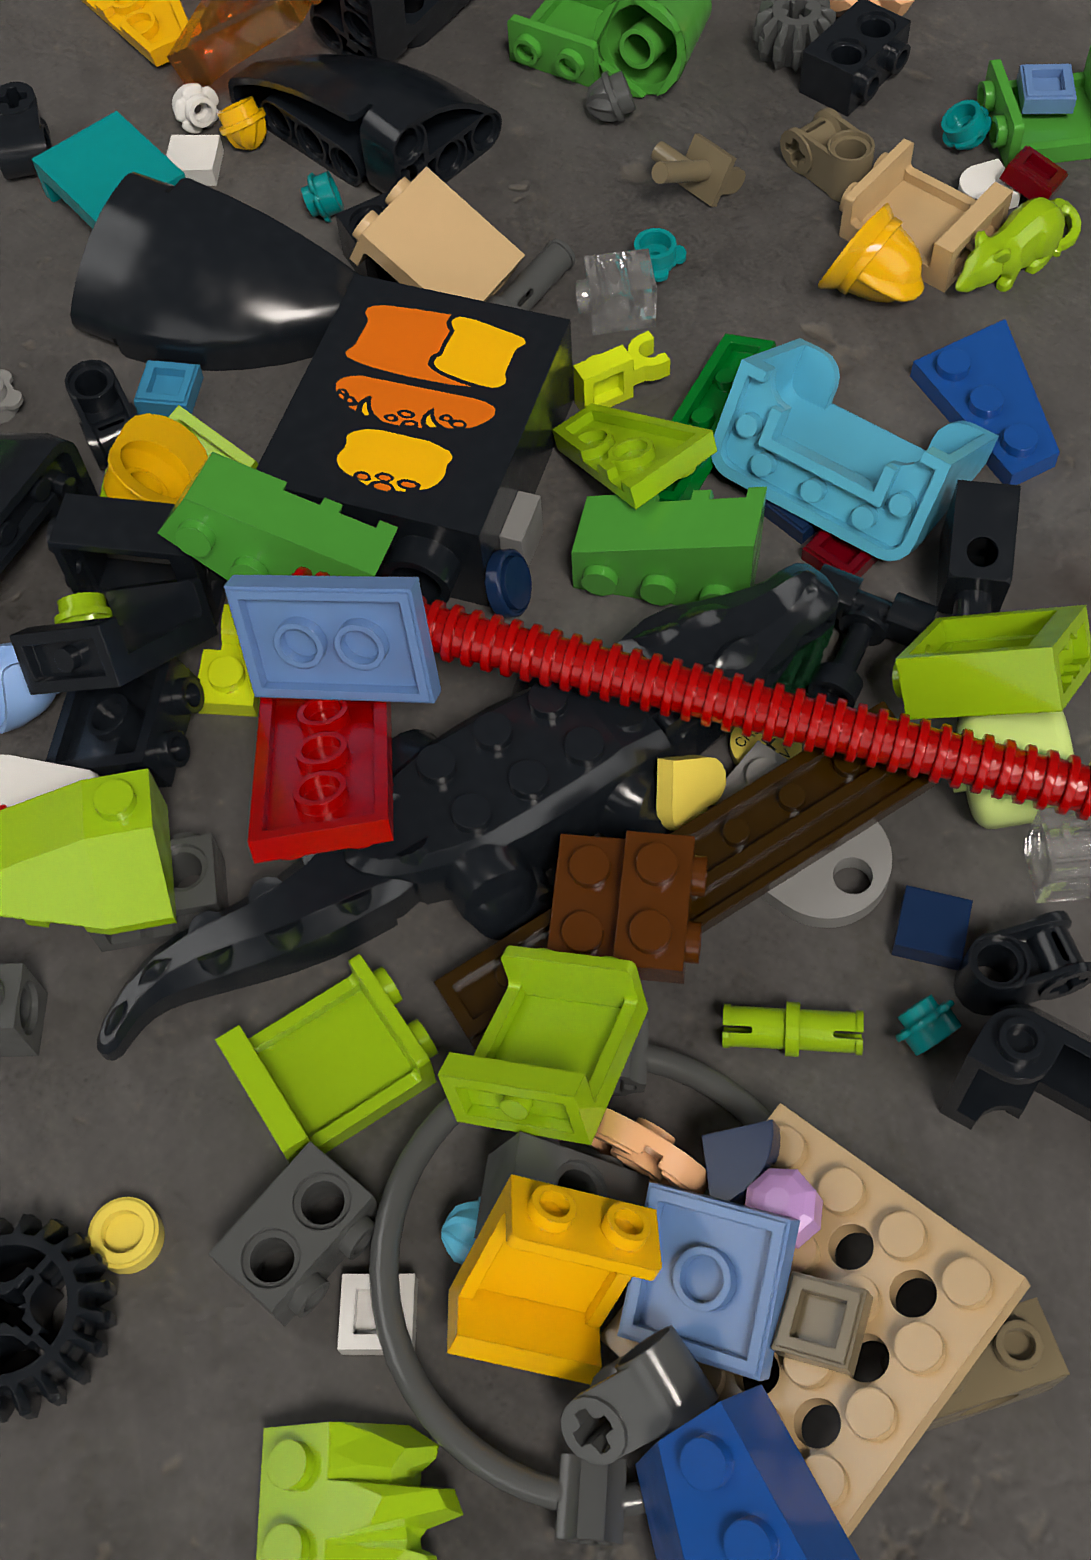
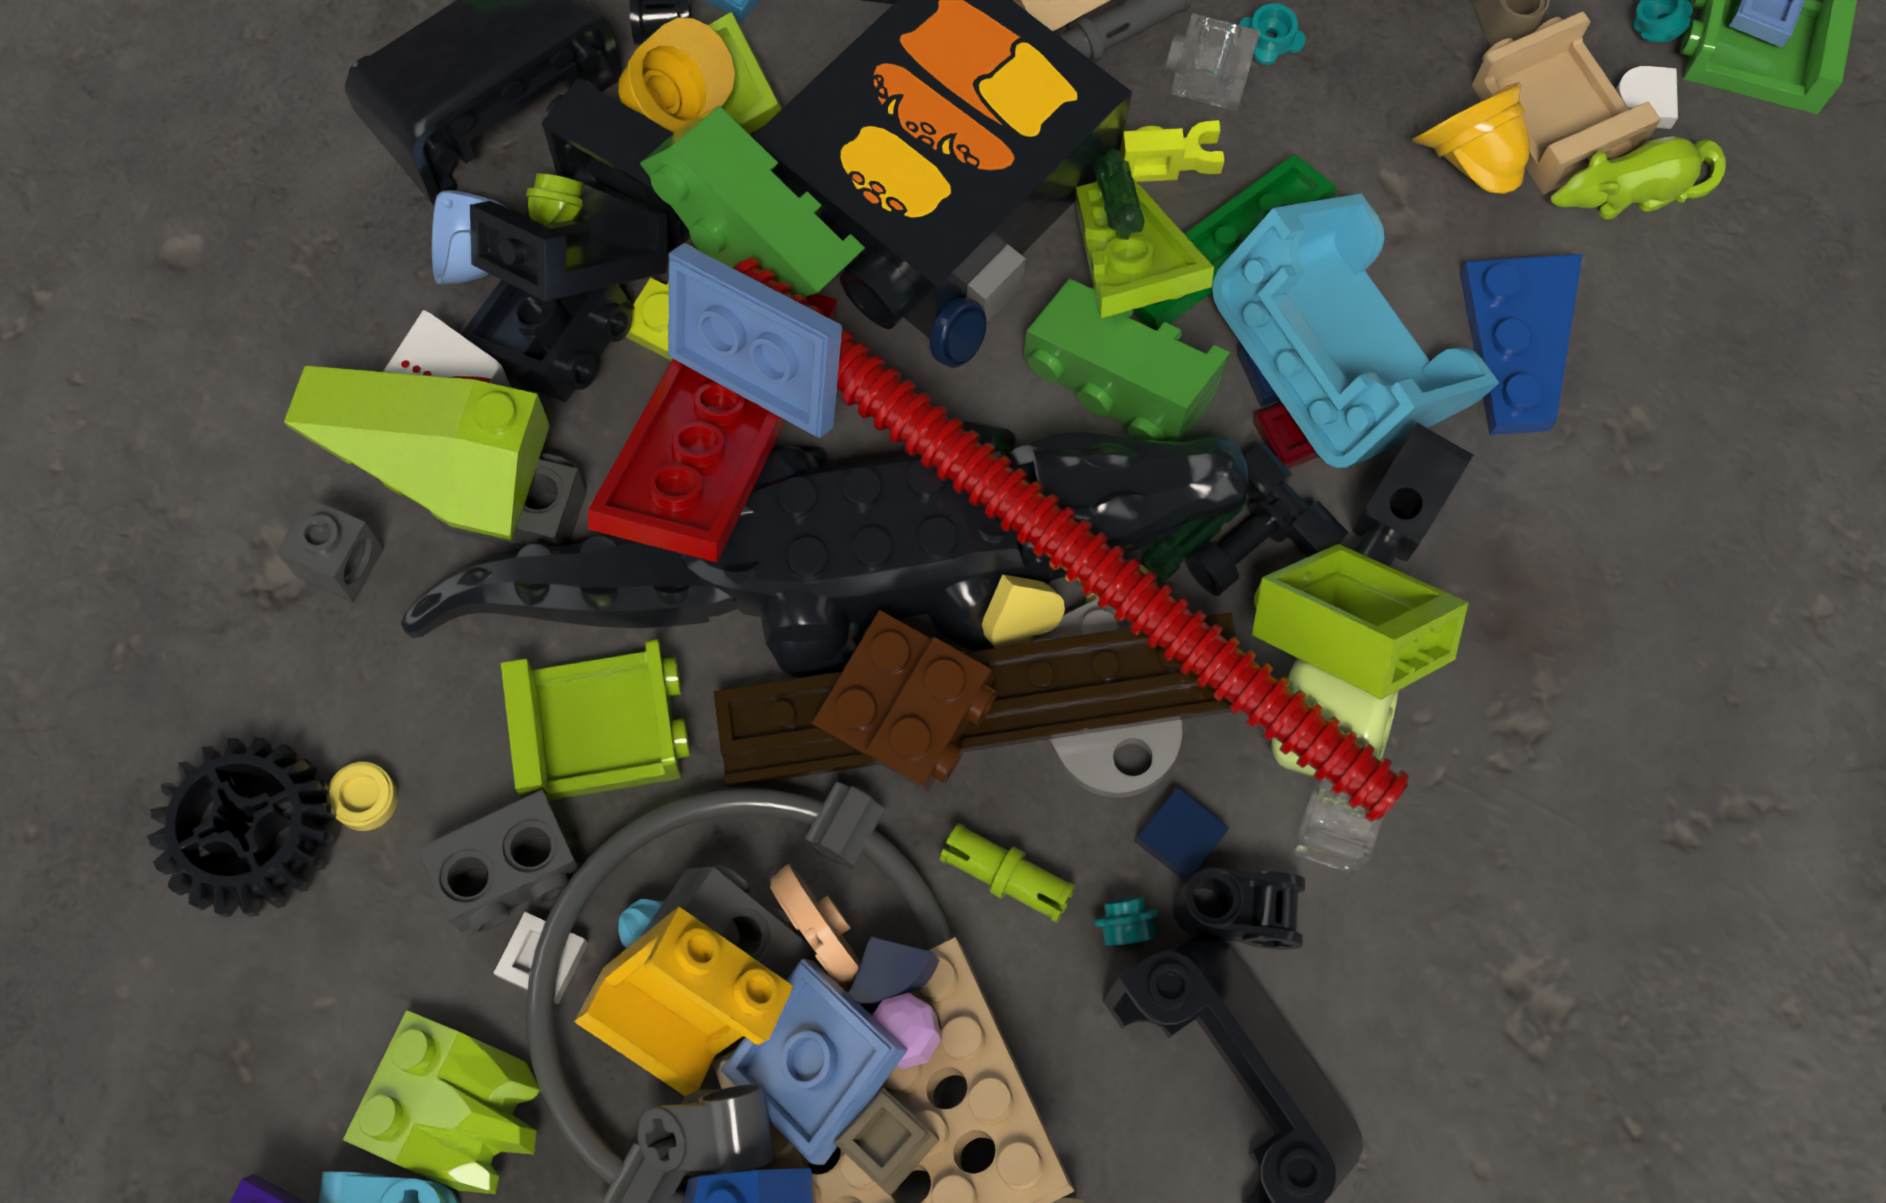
camera: 15 degrees right, 10 degrees up
(550, 1046) = (777, 802): lime panel -> none
(596, 413) = (1118, 194): none -> clear green axle
(1033, 174) = (1700, 105): dark red tile -> none

